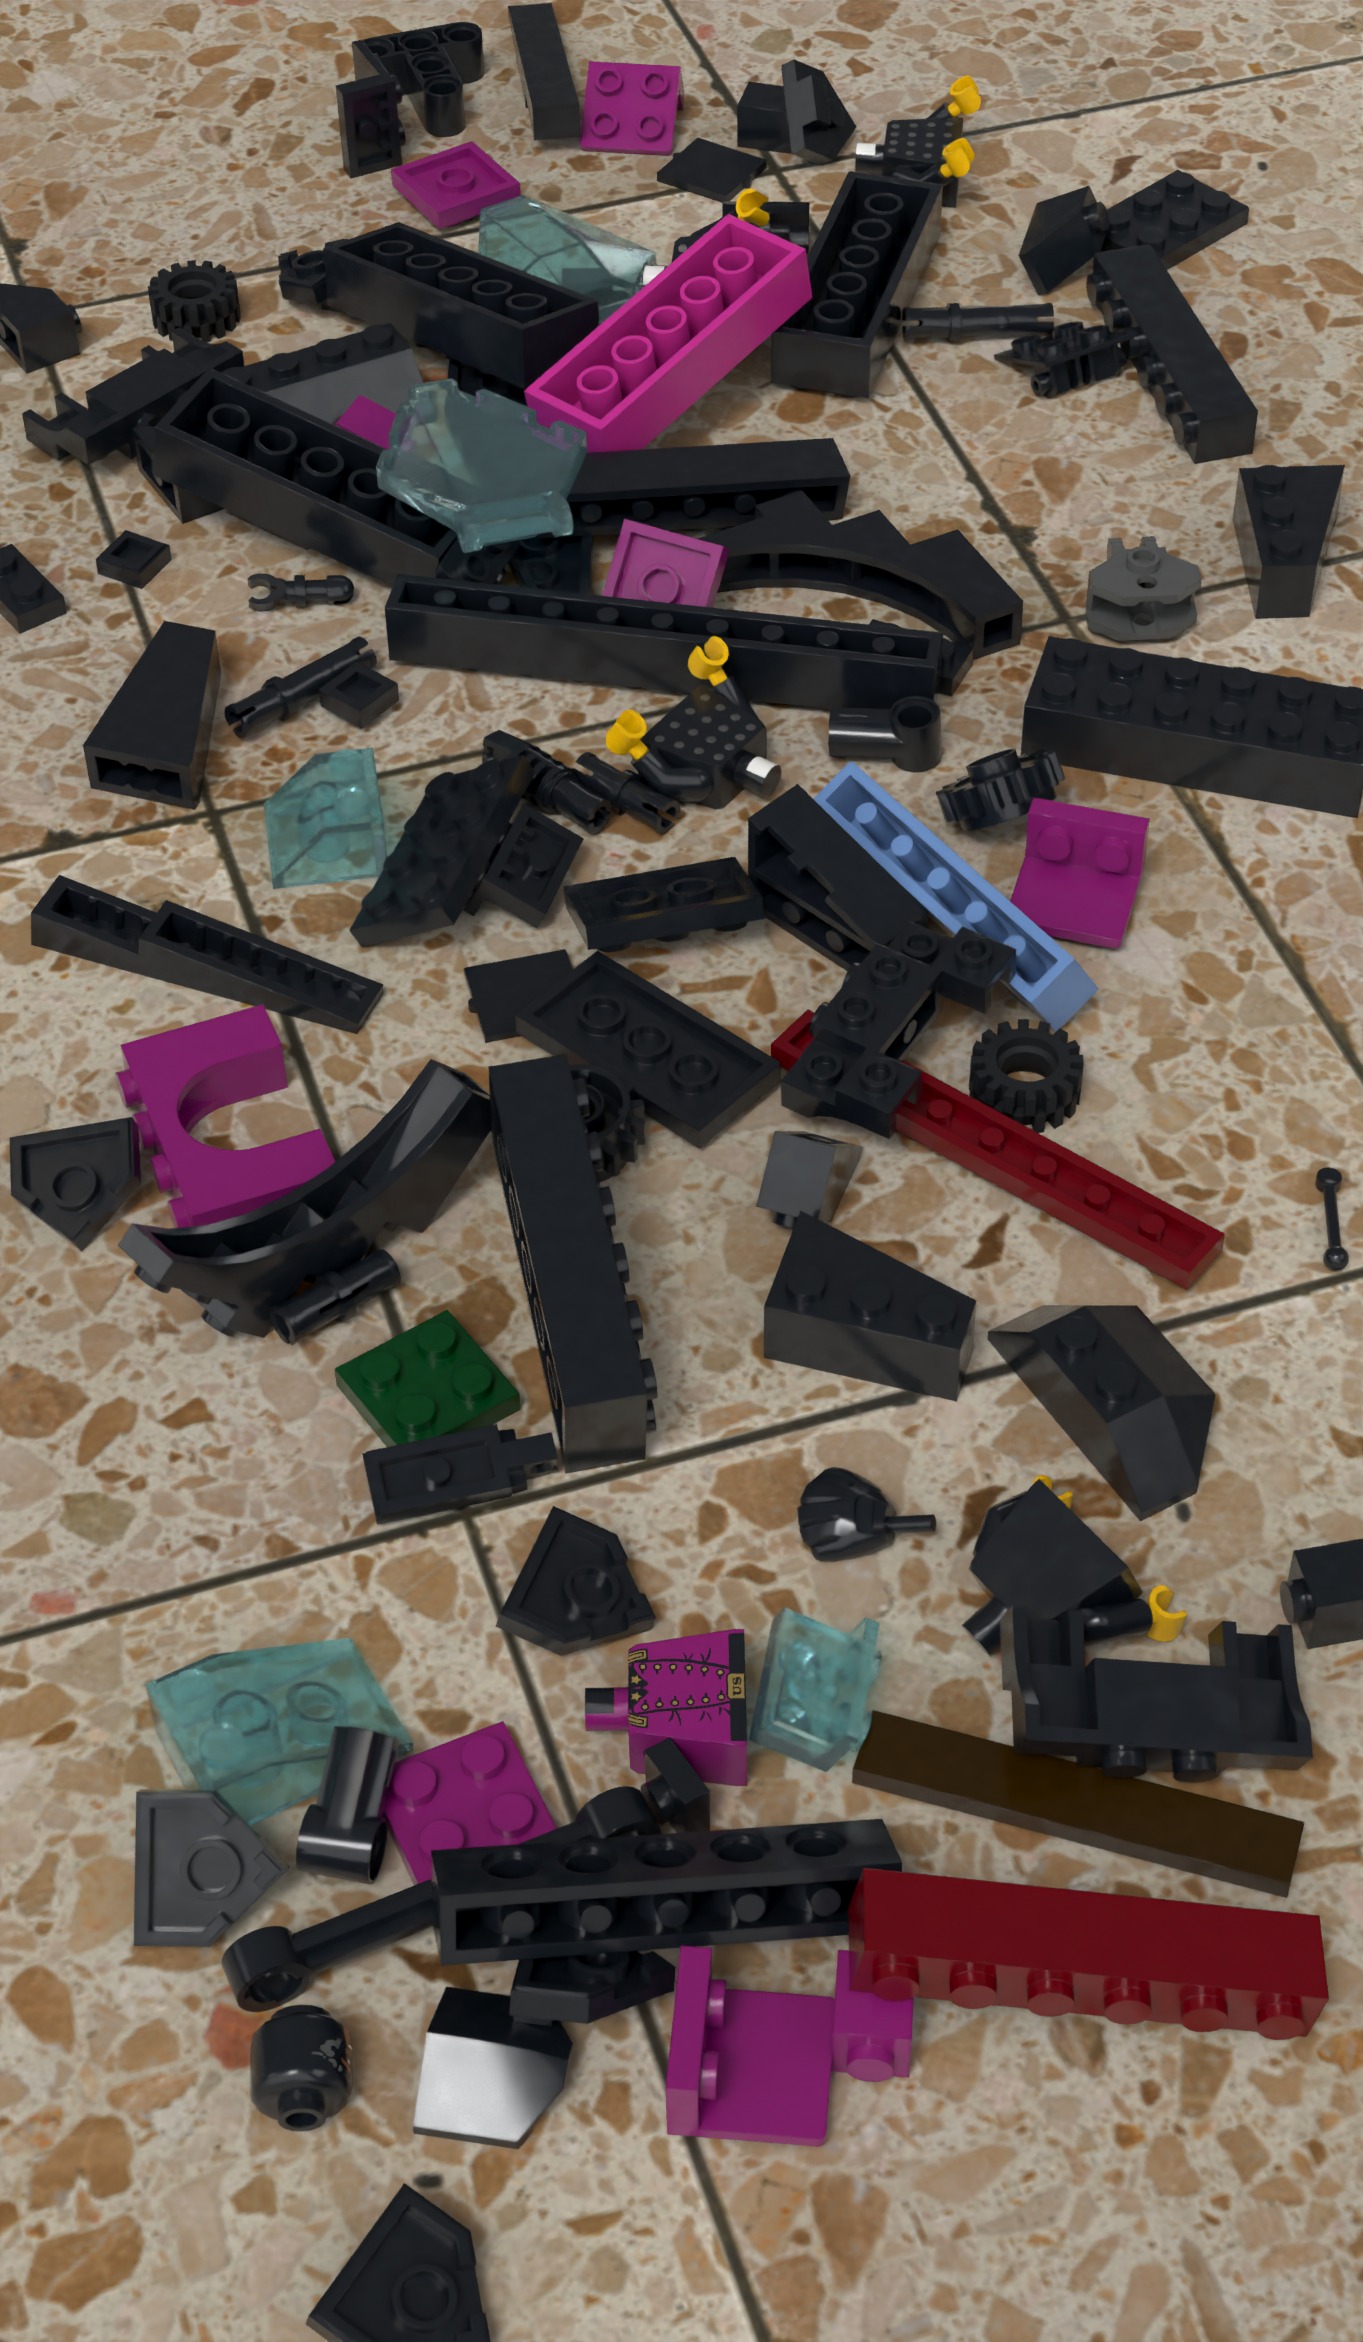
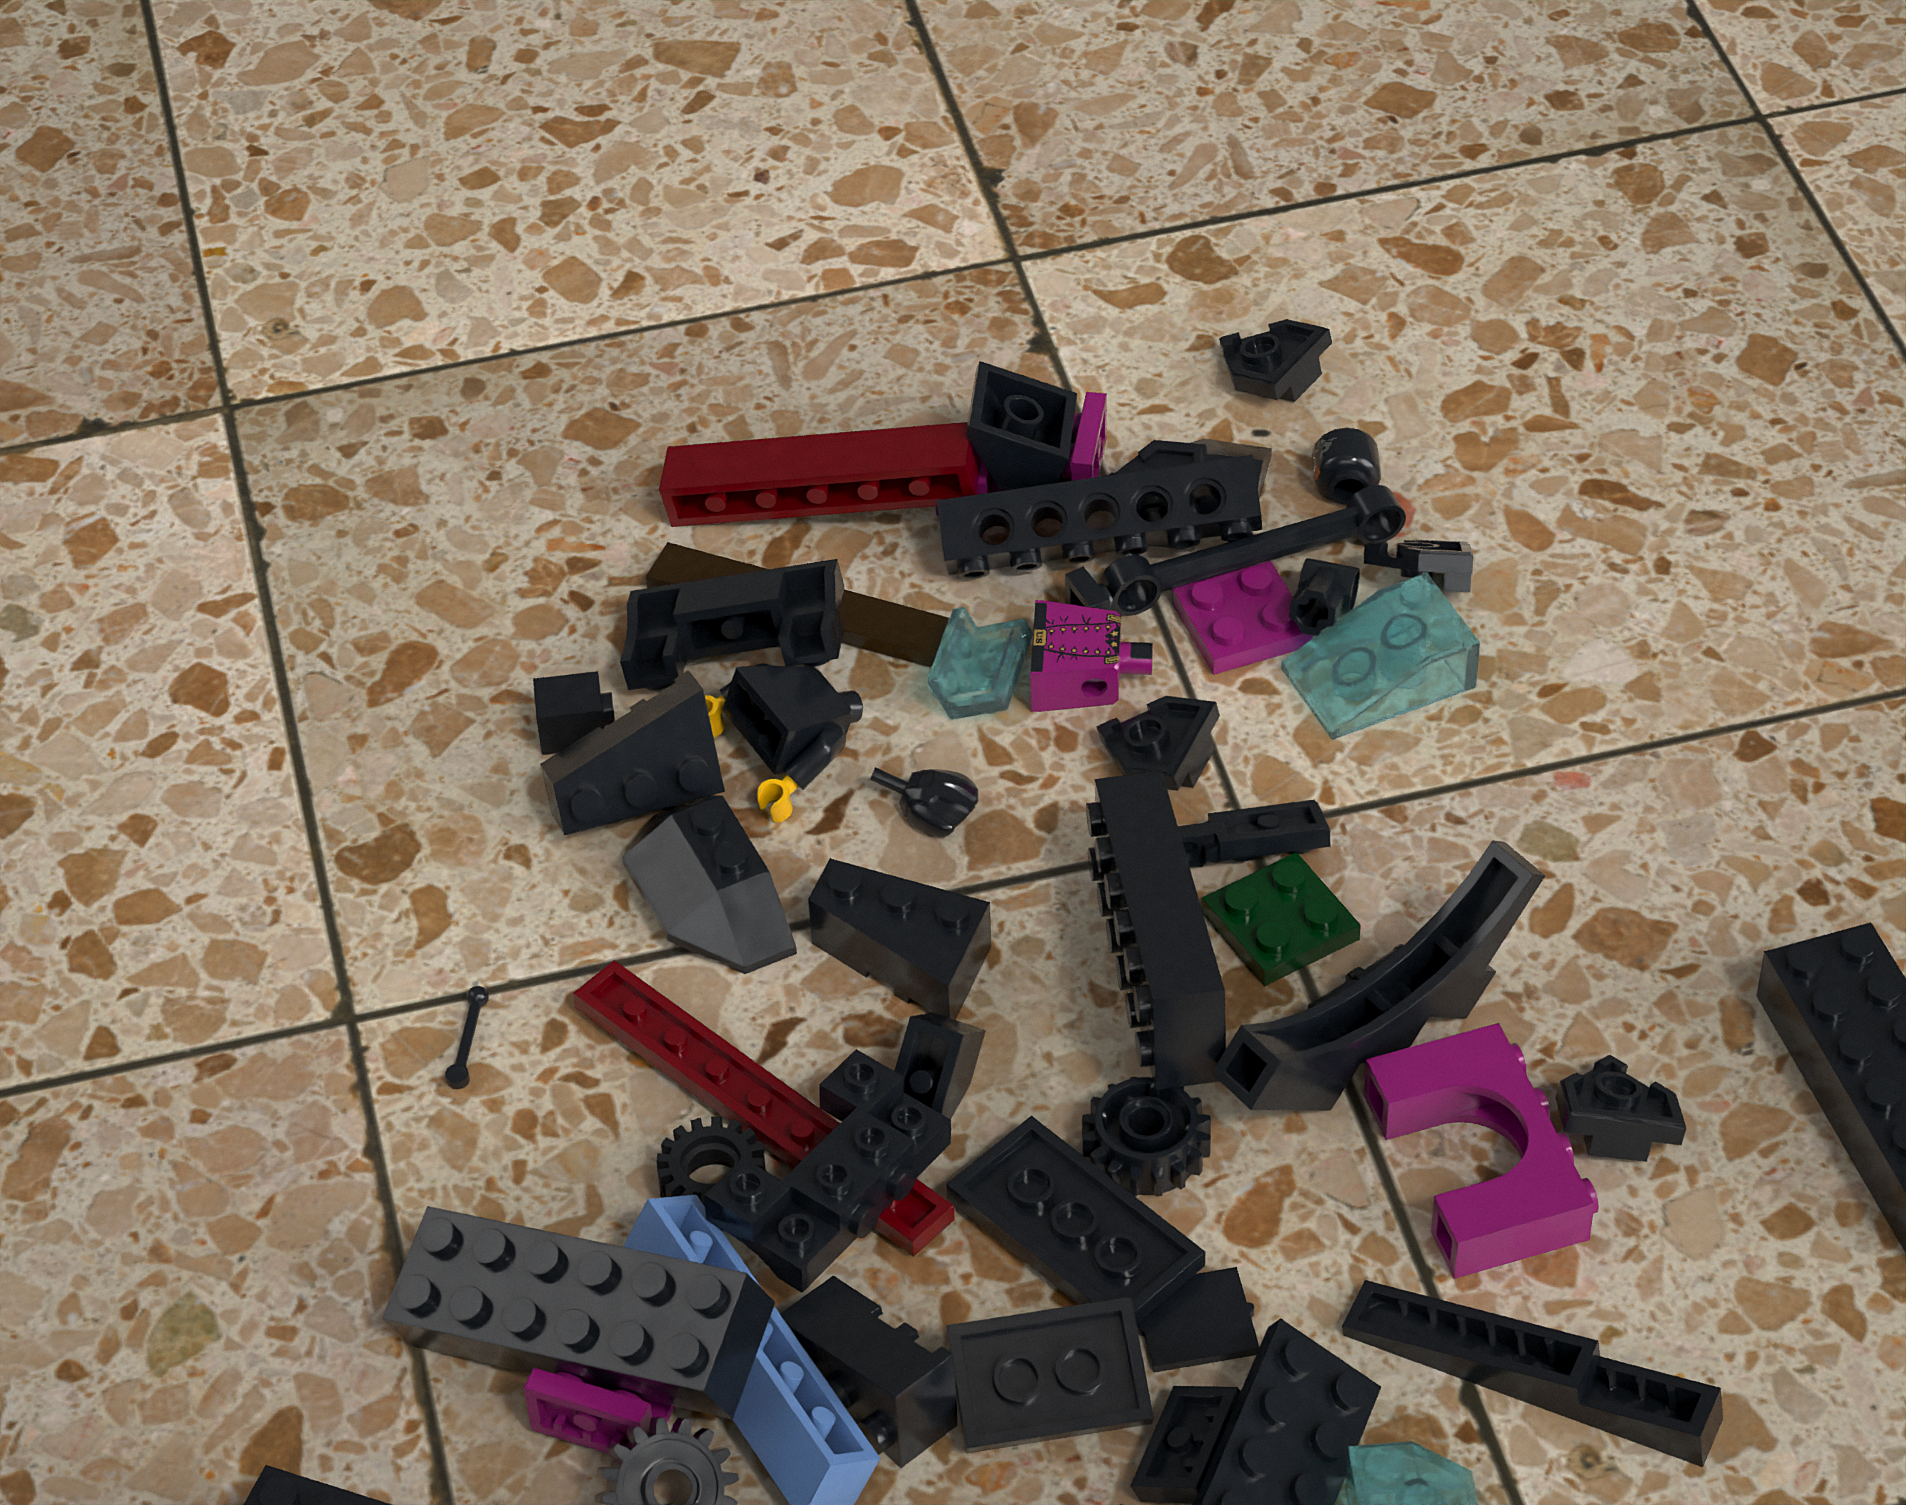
camera: 175 degrees left, 0 degrees up
(790, 2002) = (1020, 427): none -> black slope
(1118, 871) = (581, 1309): none -> black brick
(1229, 1481) = (638, 763): none -> black wedge

